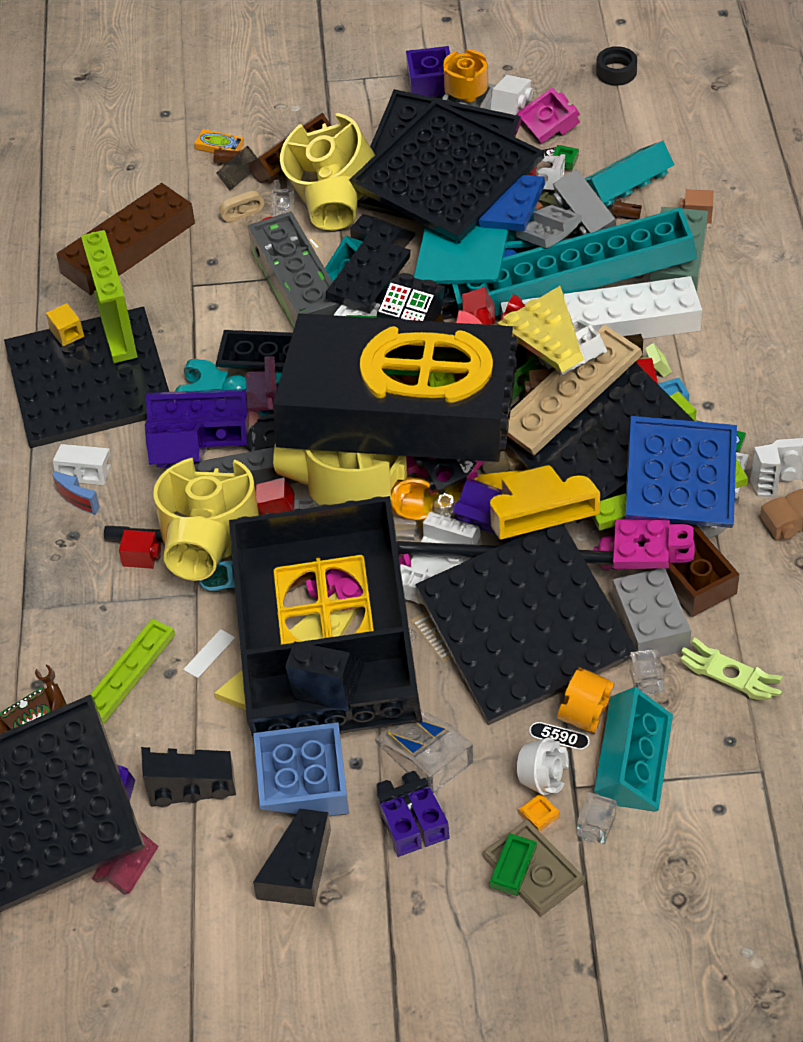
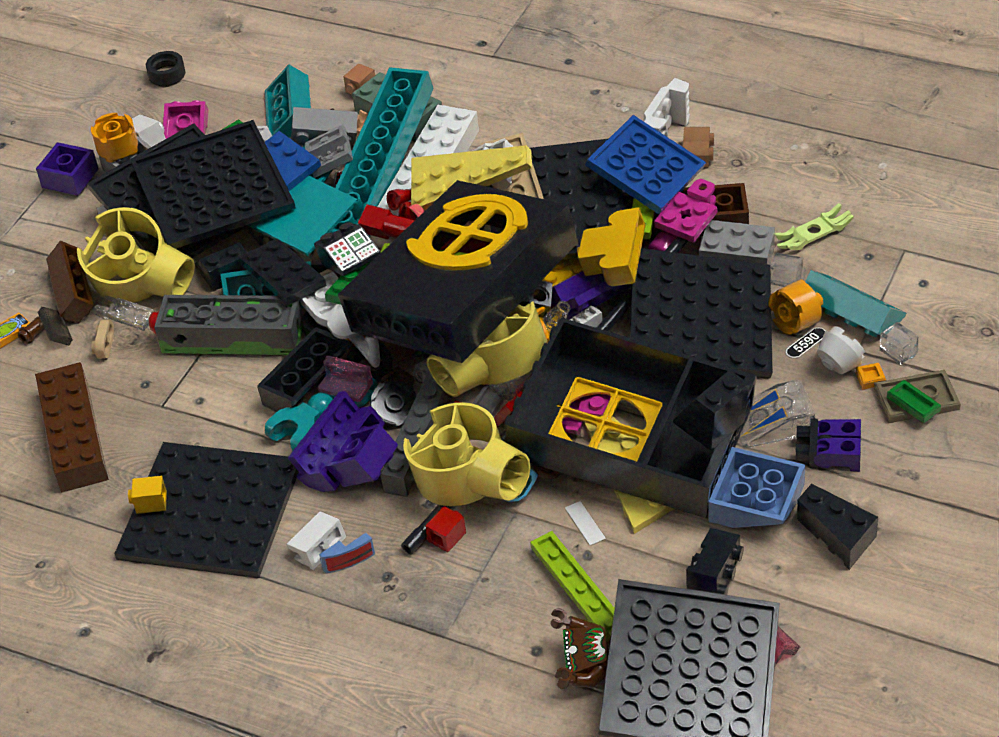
camera: 60 degrees left, 5 degrees down
(109, 296) = (168, 436): lime panel -> none

